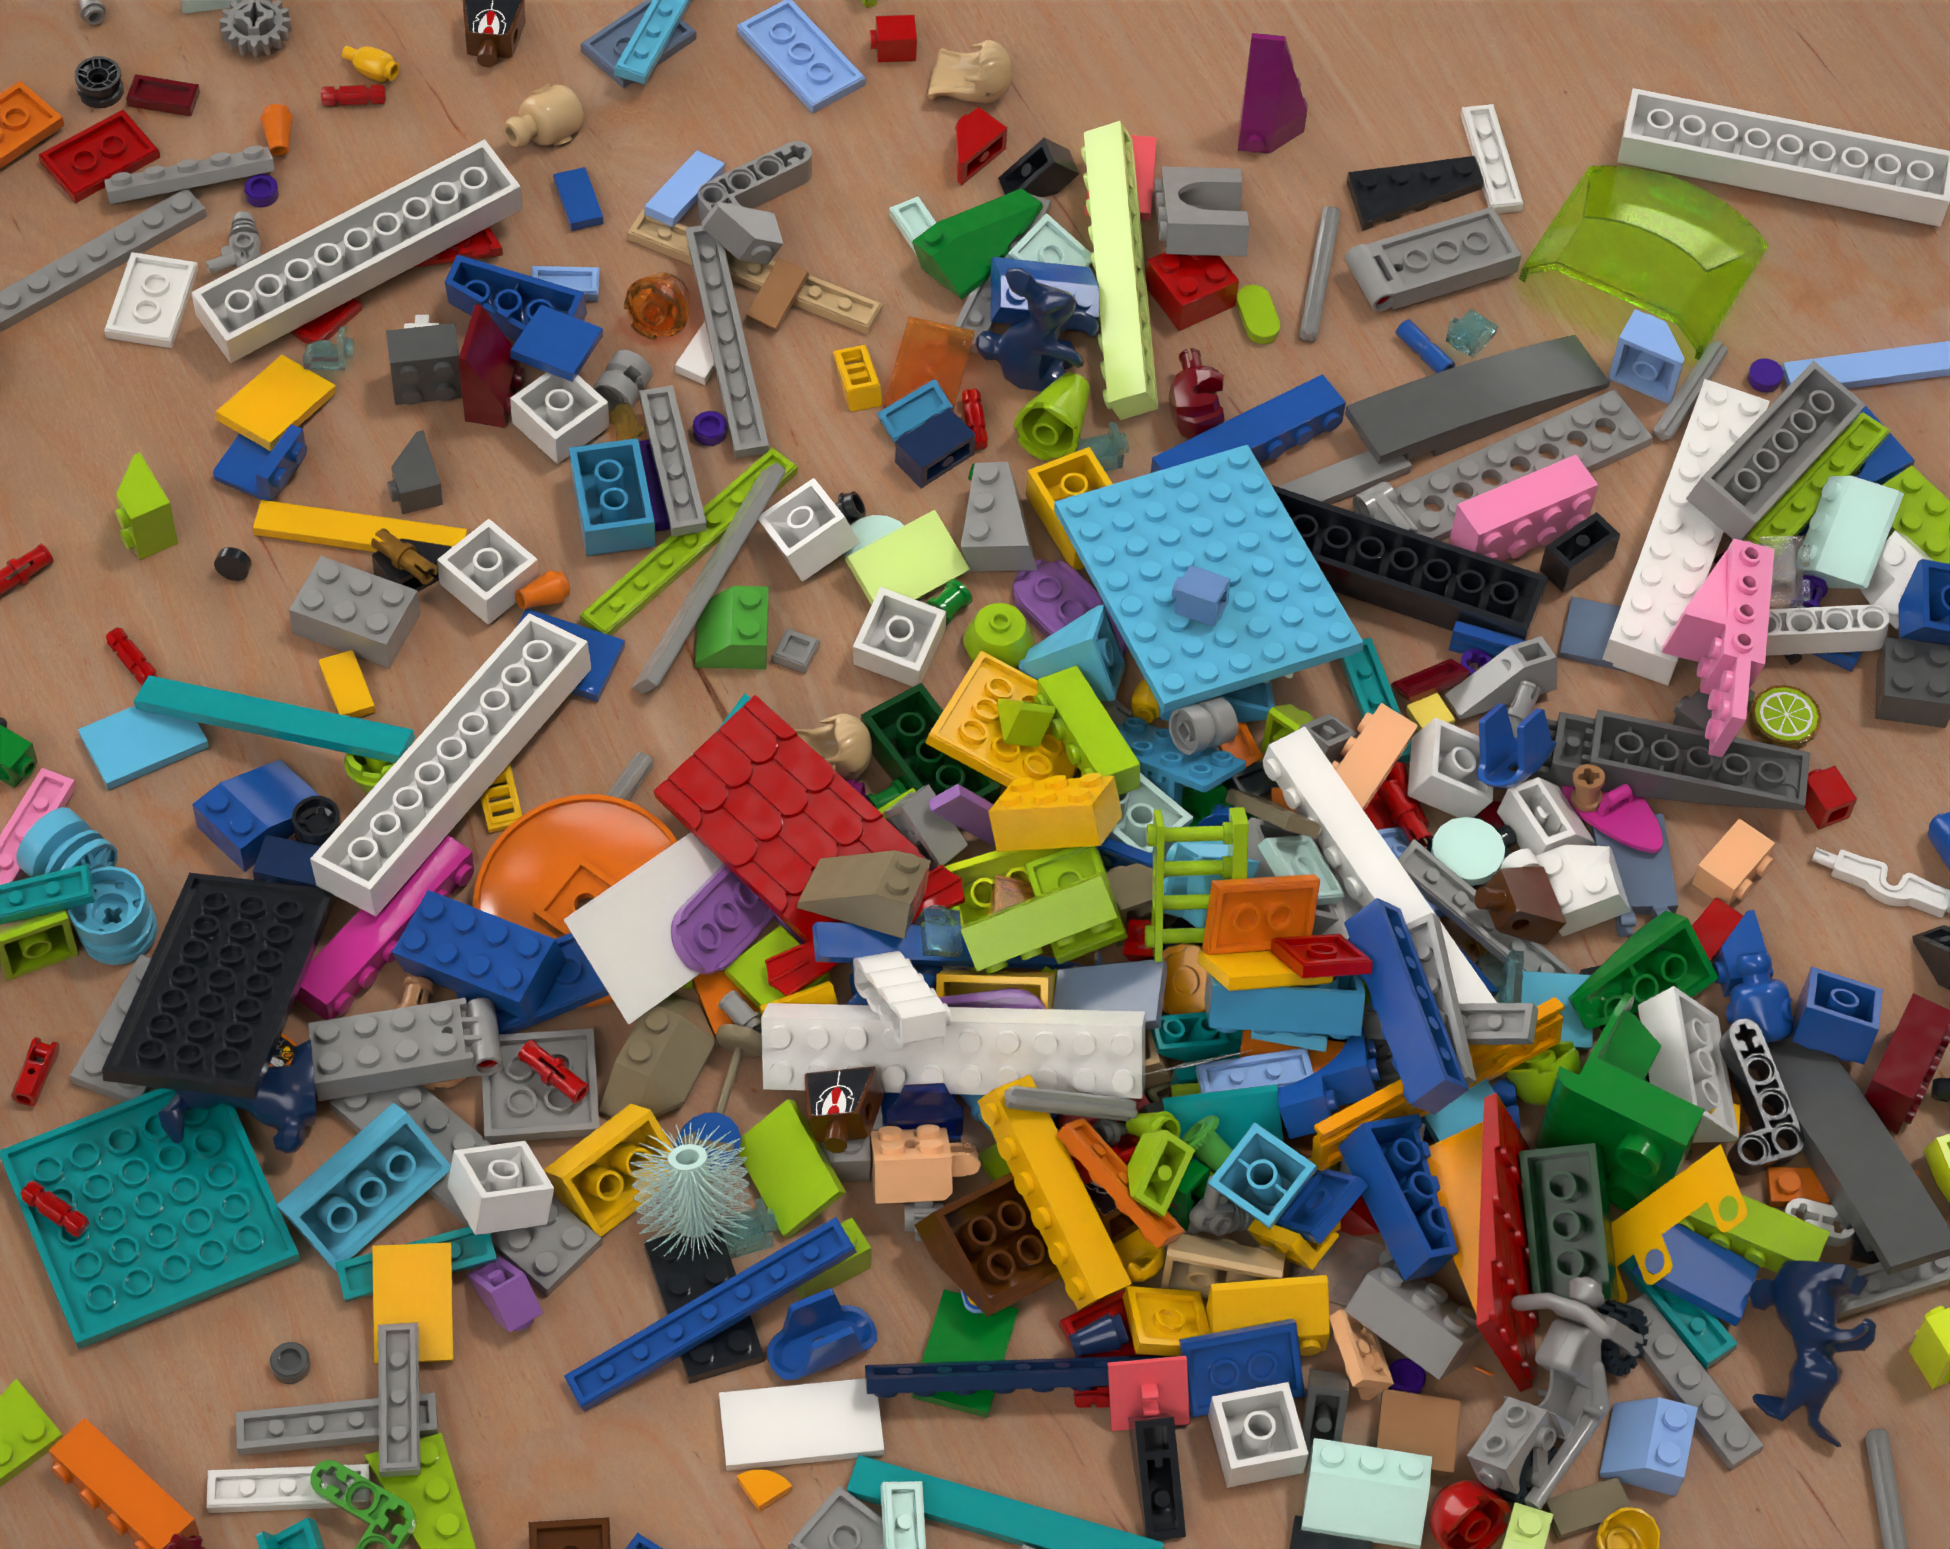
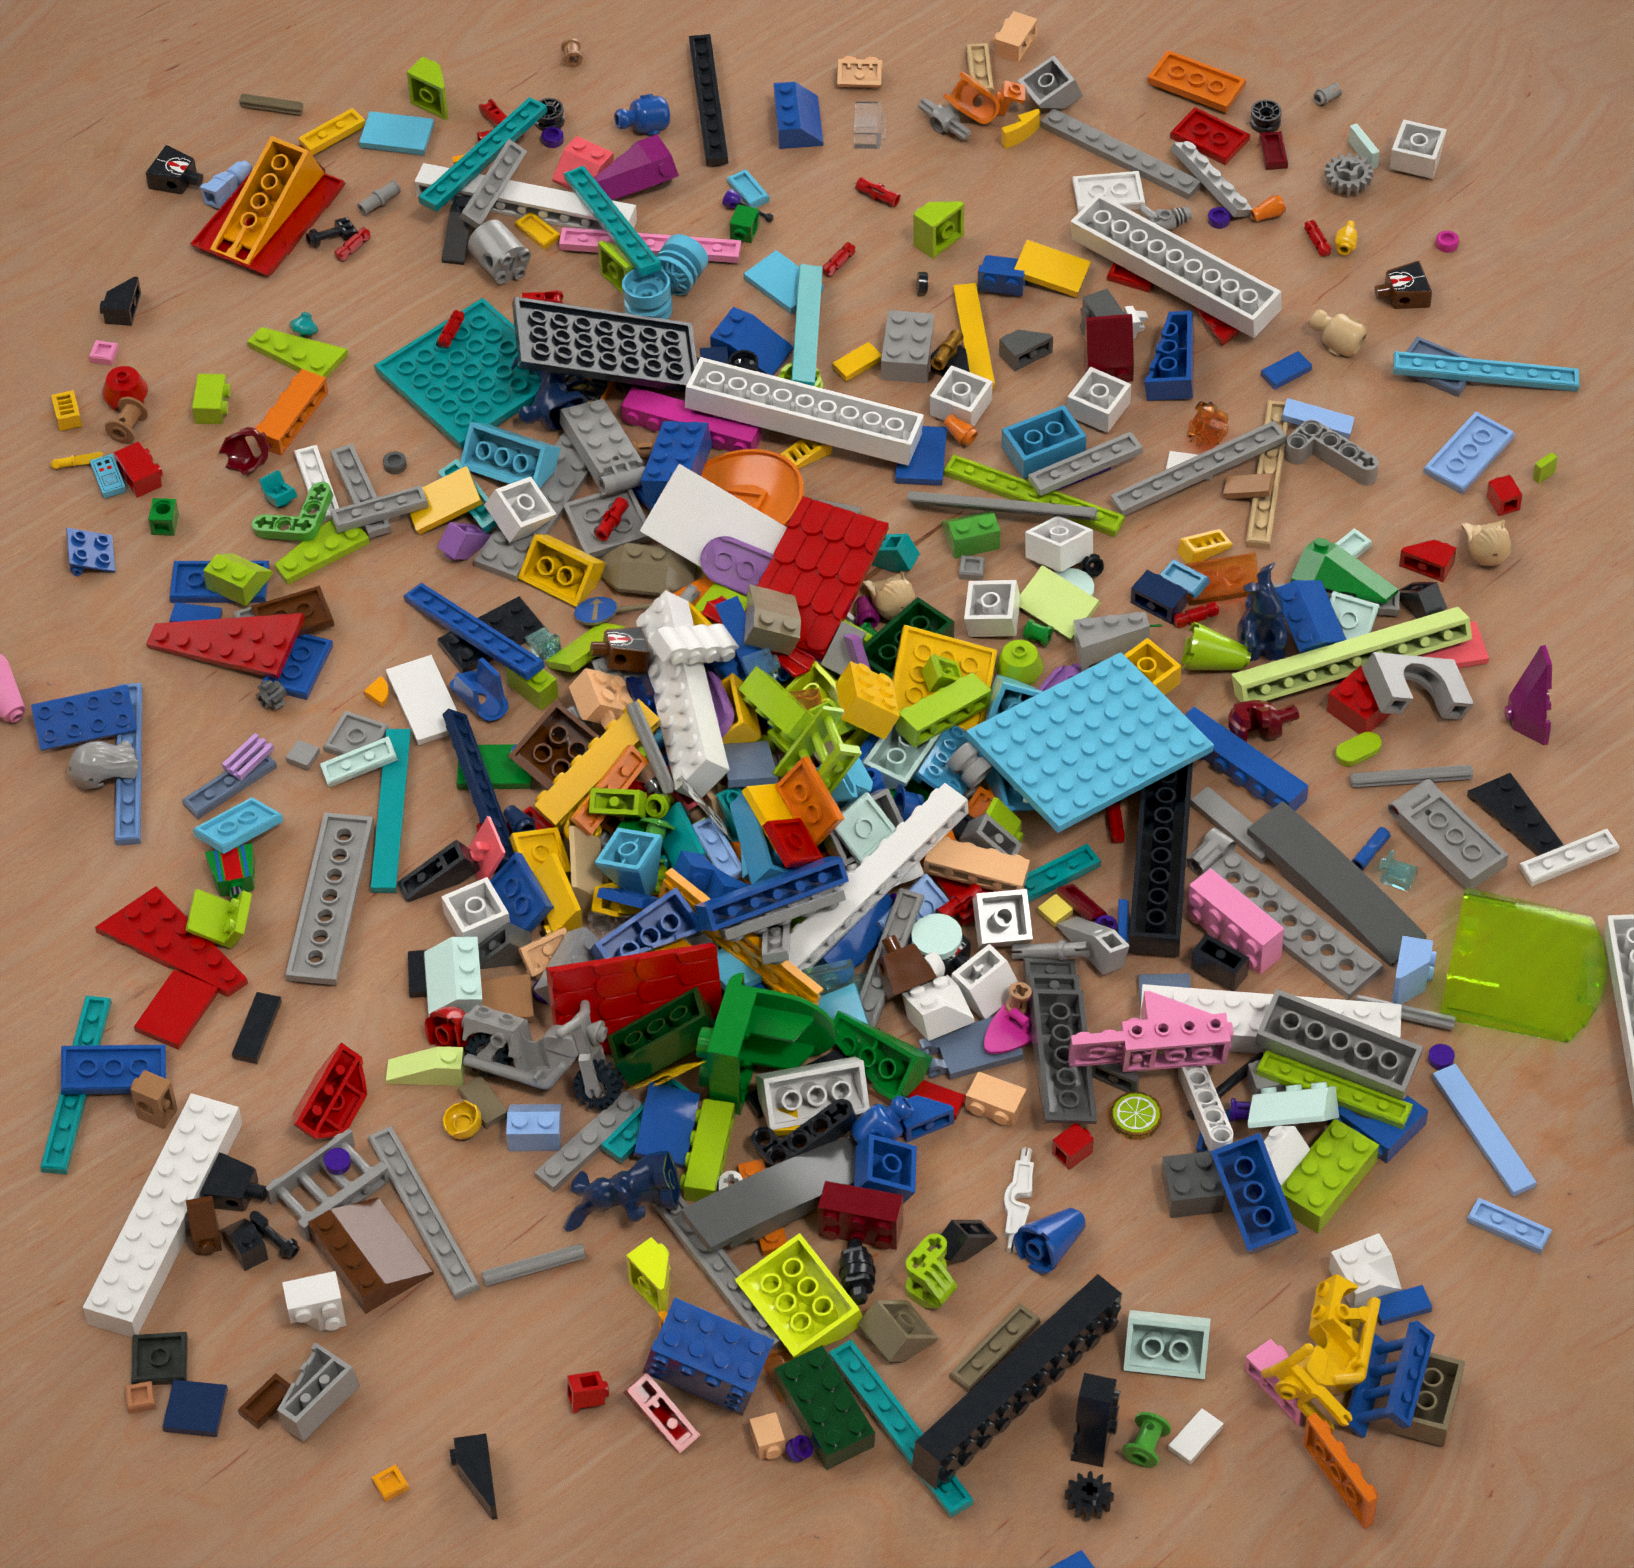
camera: 80 degrees right, 5 degrees down
(329, 356) = (1099, 280): clear light blue bracket -> none
(556, 343) = (1141, 375): blue tile -> none
(578, 278) = (1213, 382): light blue tile -> none
(623, 379) = (1131, 424): light grey wheel -> none
(626, 423) = (1114, 431): clear yellow piece -> none
(691, 1190) = (545, 595): light aqua piece -> none
(709, 428) = (1127, 479): dark purple tile -> none
(744, 232) = (1281, 449): light grey slope -> none
(1108, 448) = (1198, 687): clear light blue bracket -> none
(1201, 595) = (1054, 727): medium blue brick -> none
(1273, 813) = (897, 807): dark tan tile -> none
(1502, 750) = (1021, 938): blue piece -> none
(1790, 556) = (1238, 1072): clear brick -> none

